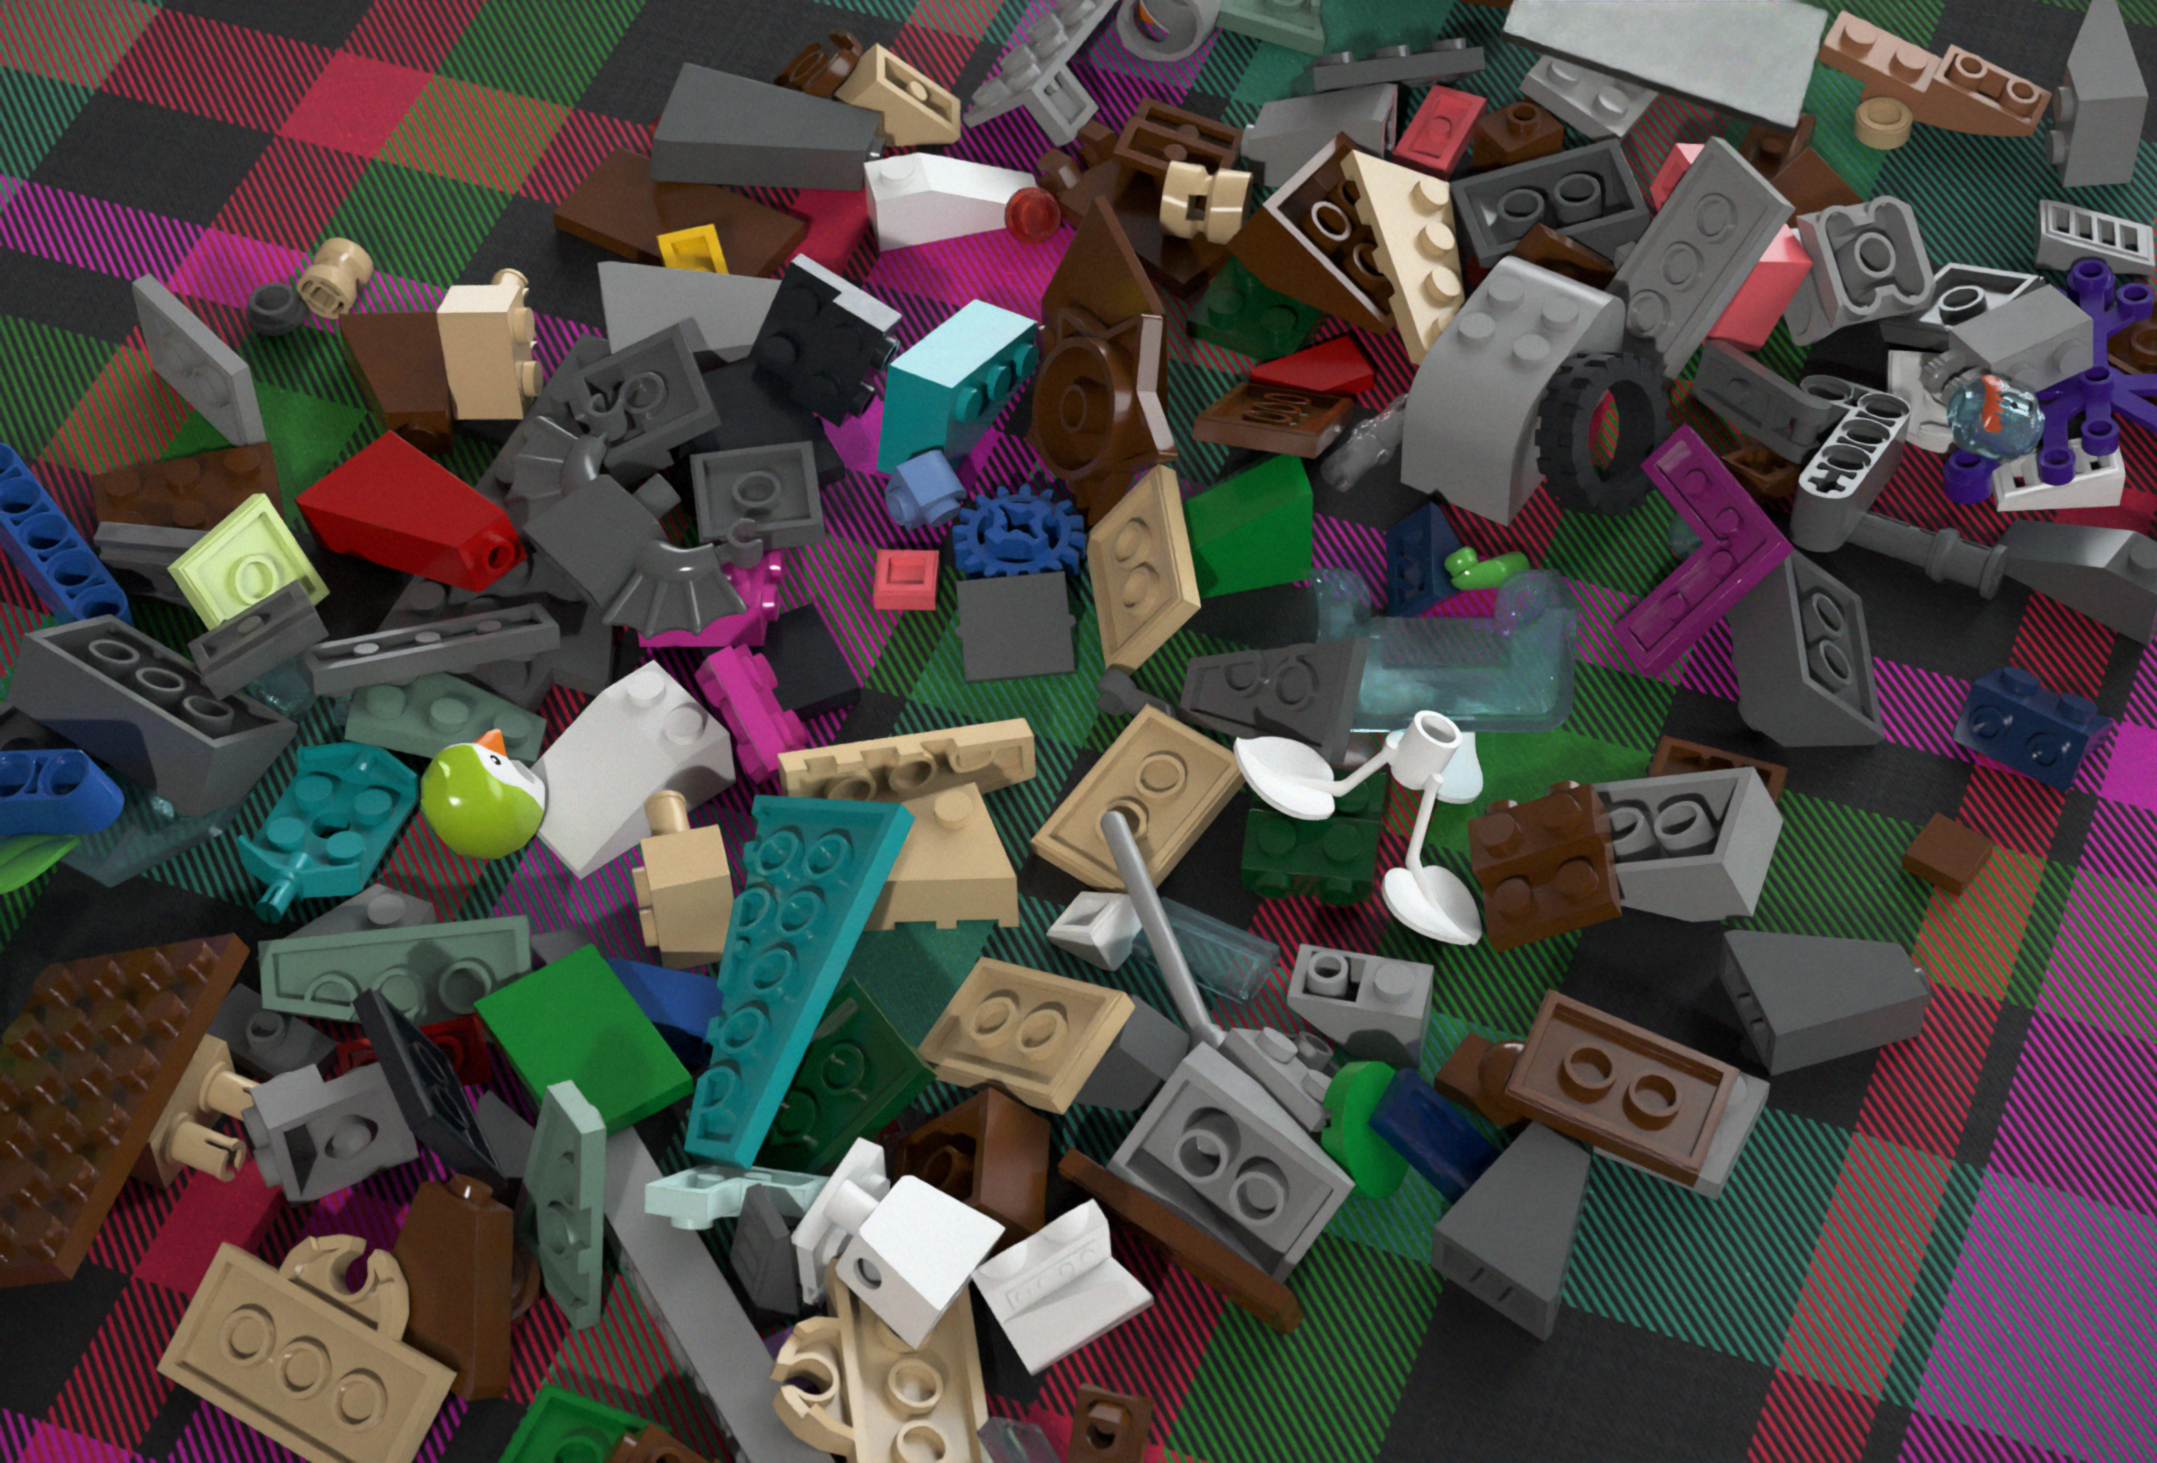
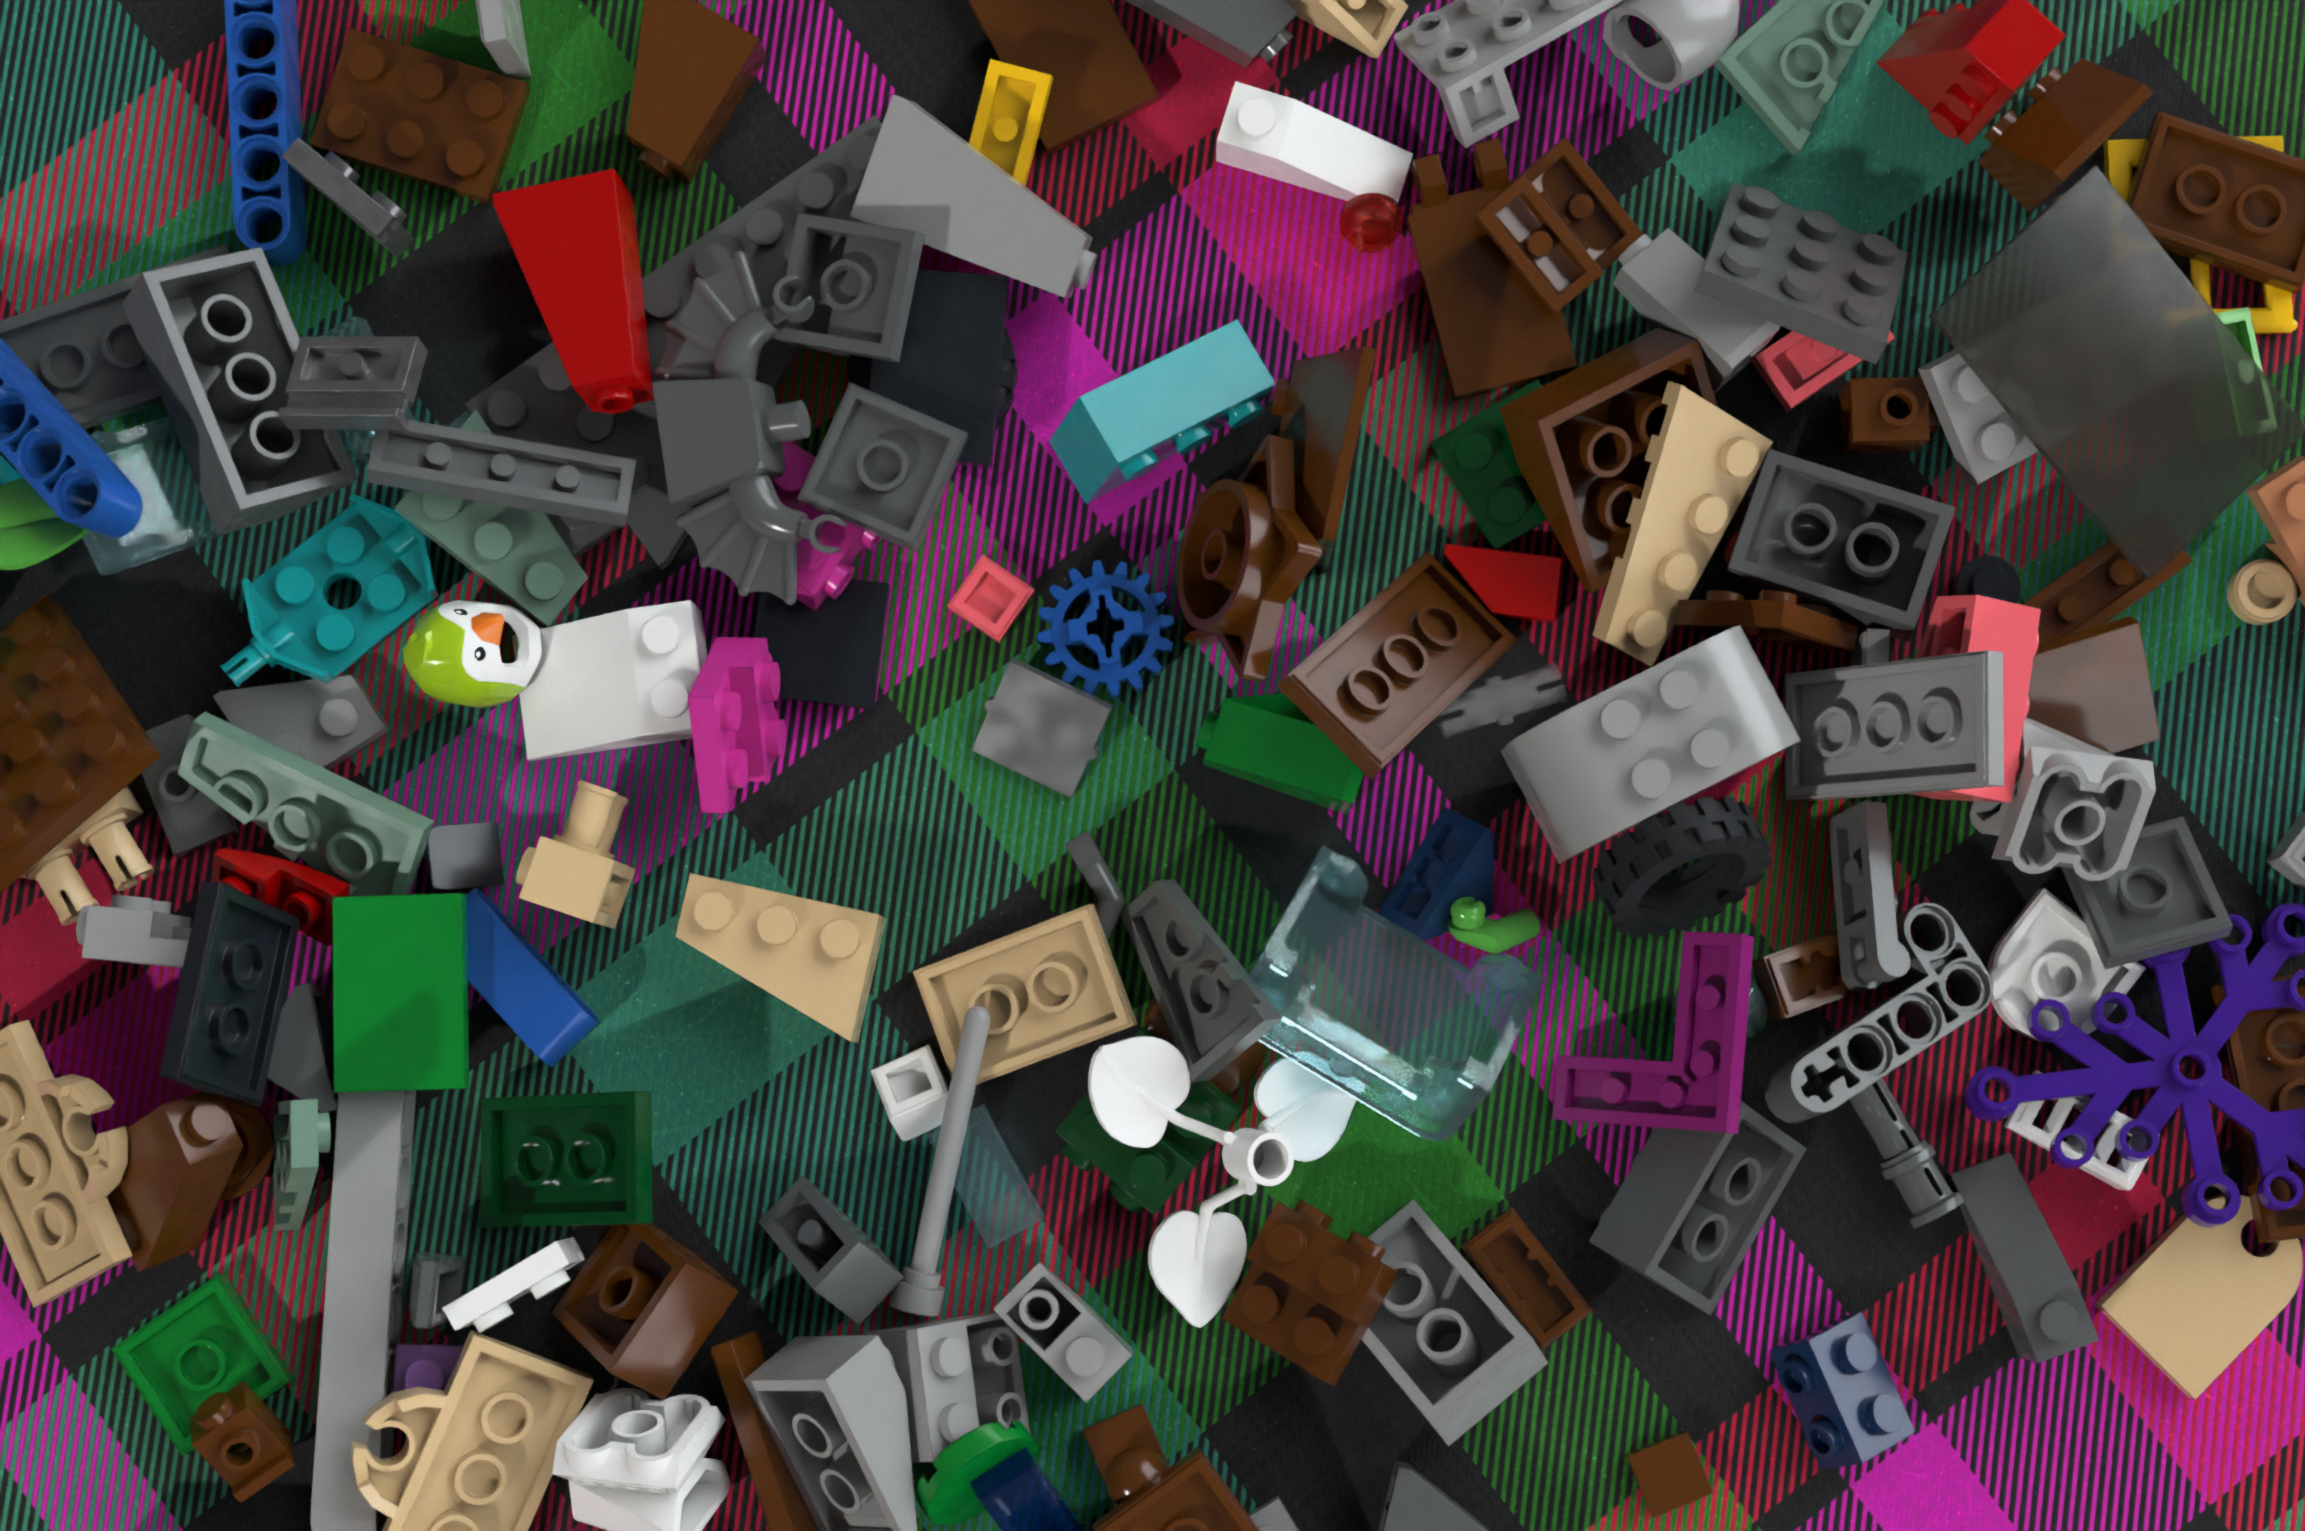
camera: 35 degrees right, 35 degrees up
(243, 563) = (405, 269): yellowish green tile -> none
(490, 348) = (758, 111): tan brick -> none
(713, 1191) = (443, 1206): light aqua plate -> none
(784, 951) = (609, 1016): teal wing -> none
(826, 341) = (1047, 342): black plate -> none
(910, 1251) = (533, 1378): white torso -> none
(913, 764) = (818, 844): tan wing -> none
(924, 492) = (1059, 519): medium blue plate -> none
(1024, 1033) = (763, 1200): tan tile -> none
(1142, 571) = (1178, 751): tan tile -> none
(1226, 204) = (1523, 333): tan wheel -> none
(1995, 419) = (2043, 1082): clear light blue head -> none
(2024, 341) = (2126, 1007): light grey hinge -> none

